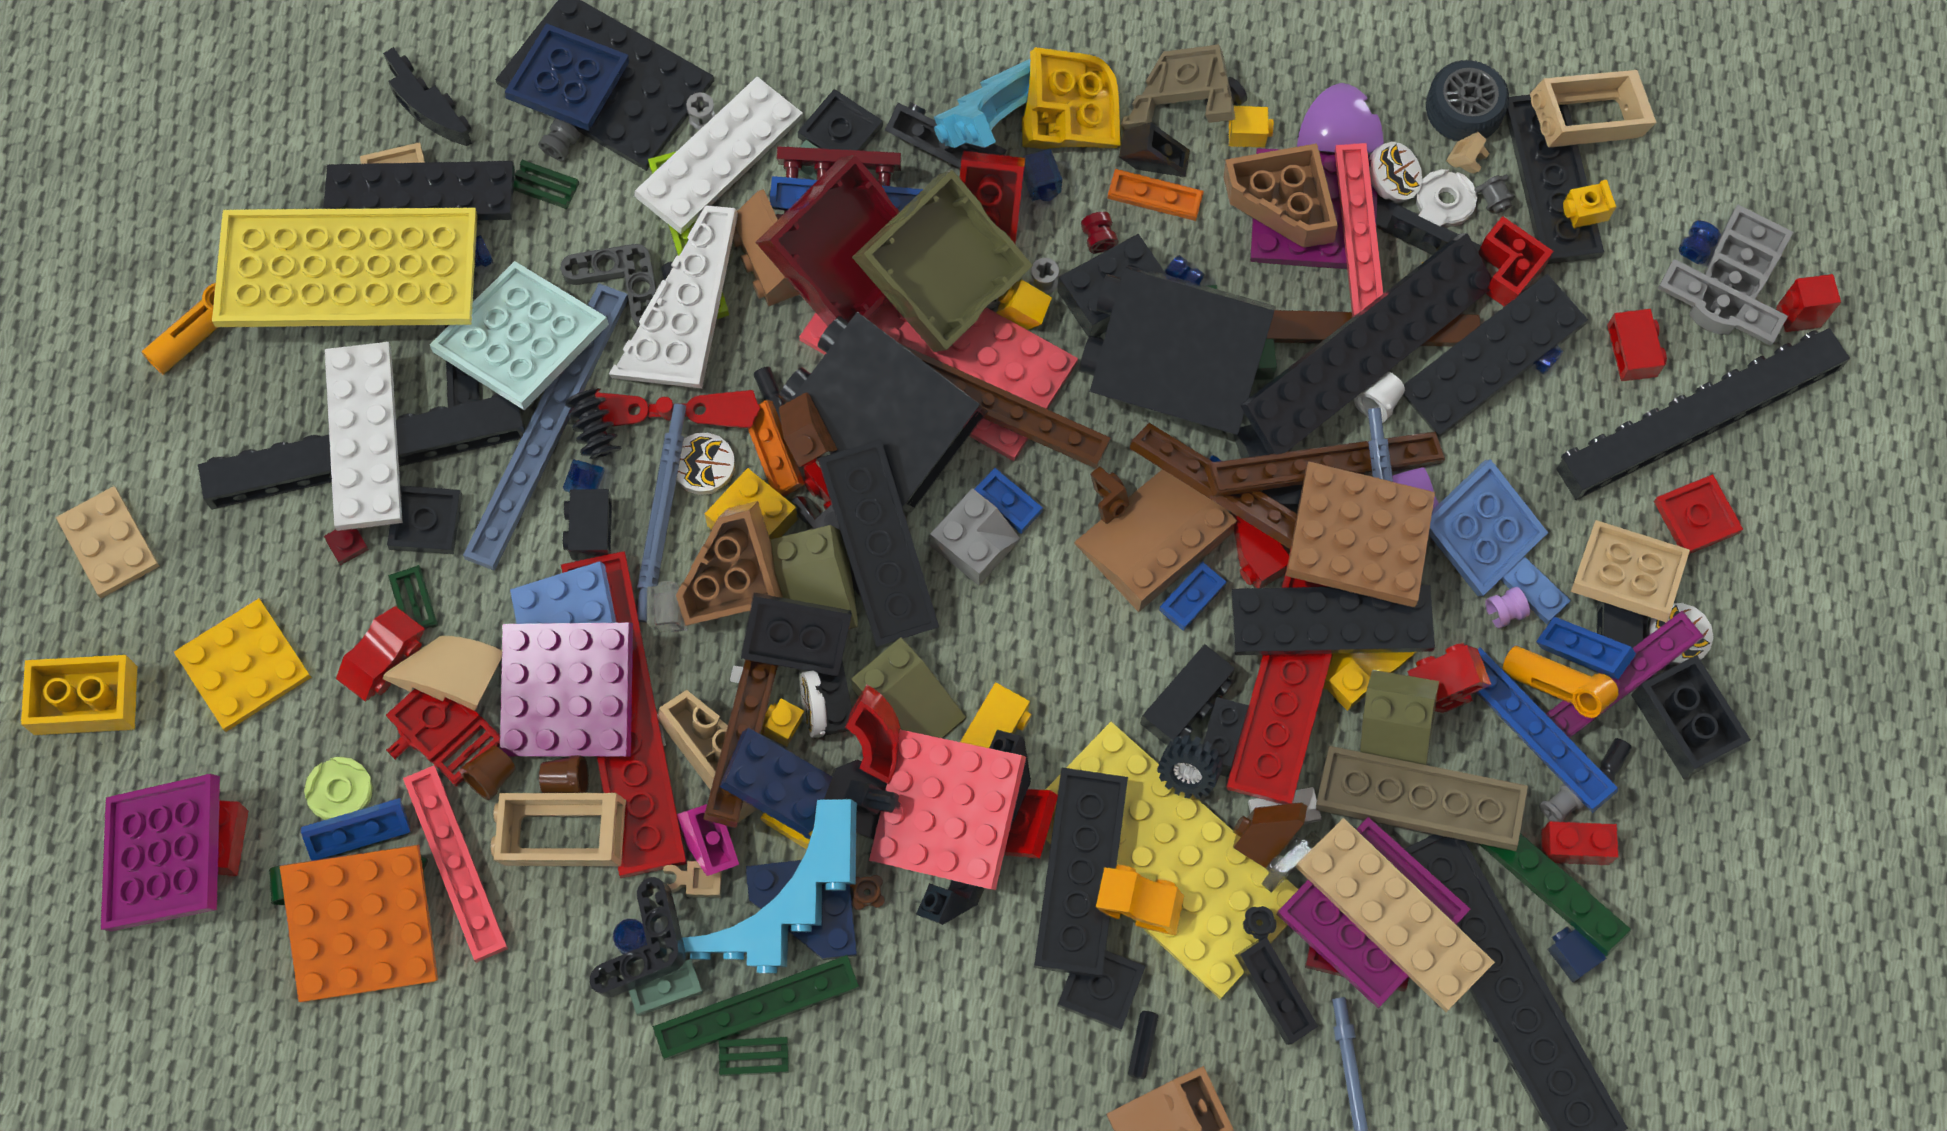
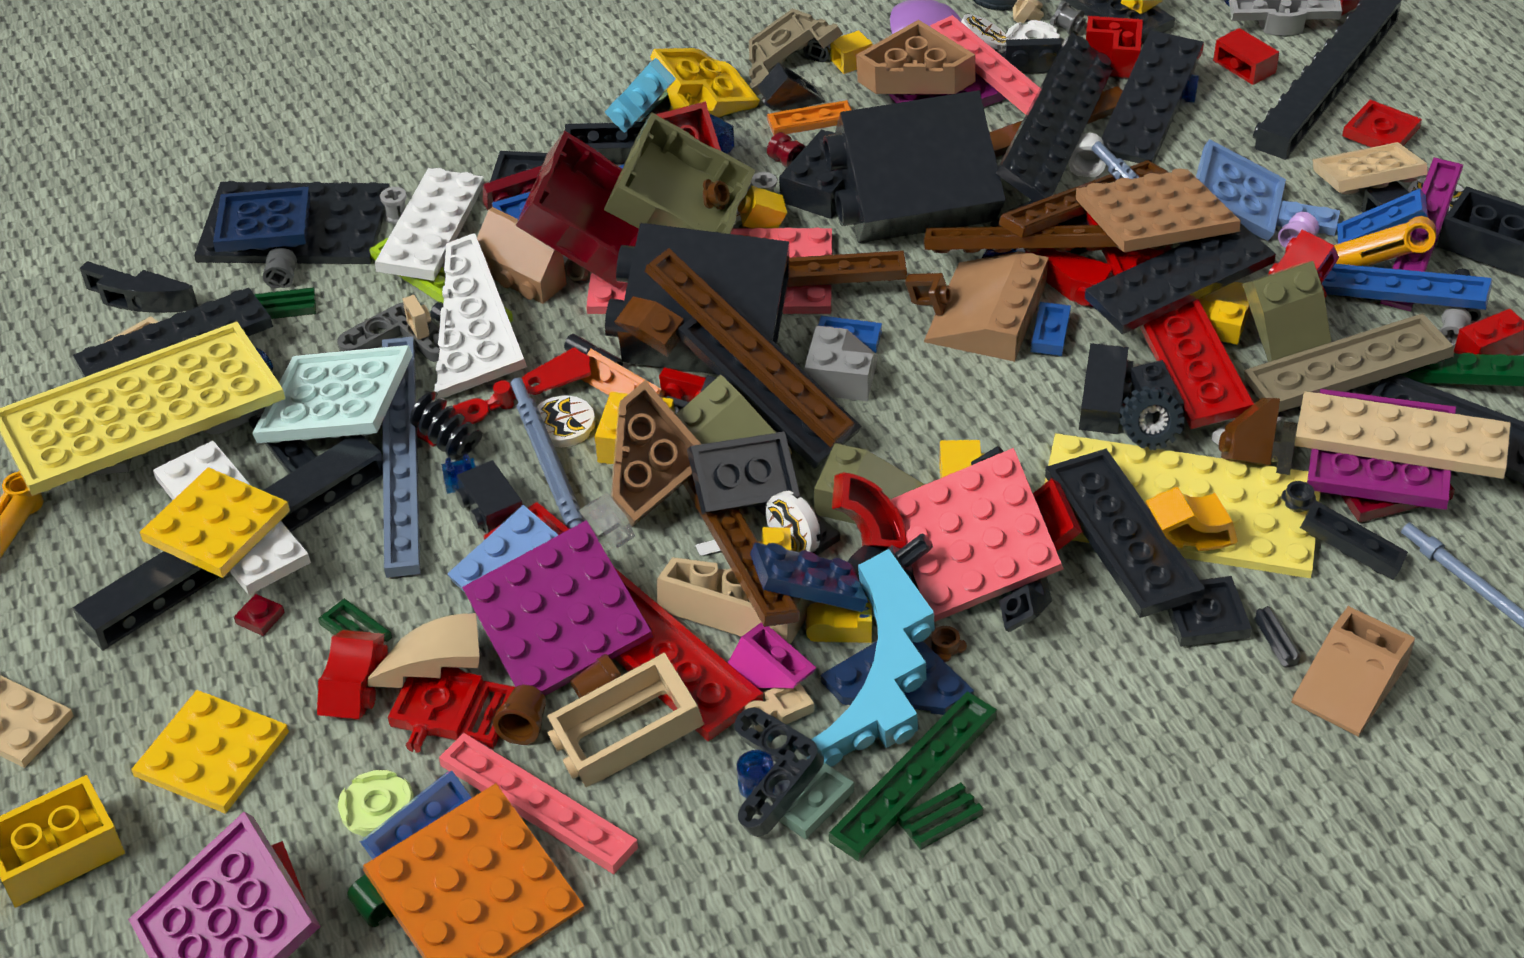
camera: 25 degrees left, 25 degrees down
(339, 446) = (215, 522): none -> yellow plate
(428, 520) = (334, 564): black plate -> none
(637, 278) = (417, 316): none -> tan plate
(872, 506) = (750, 347): none -> reddish brown tile
(979, 275) = (715, 194): none -> reddish brown plate

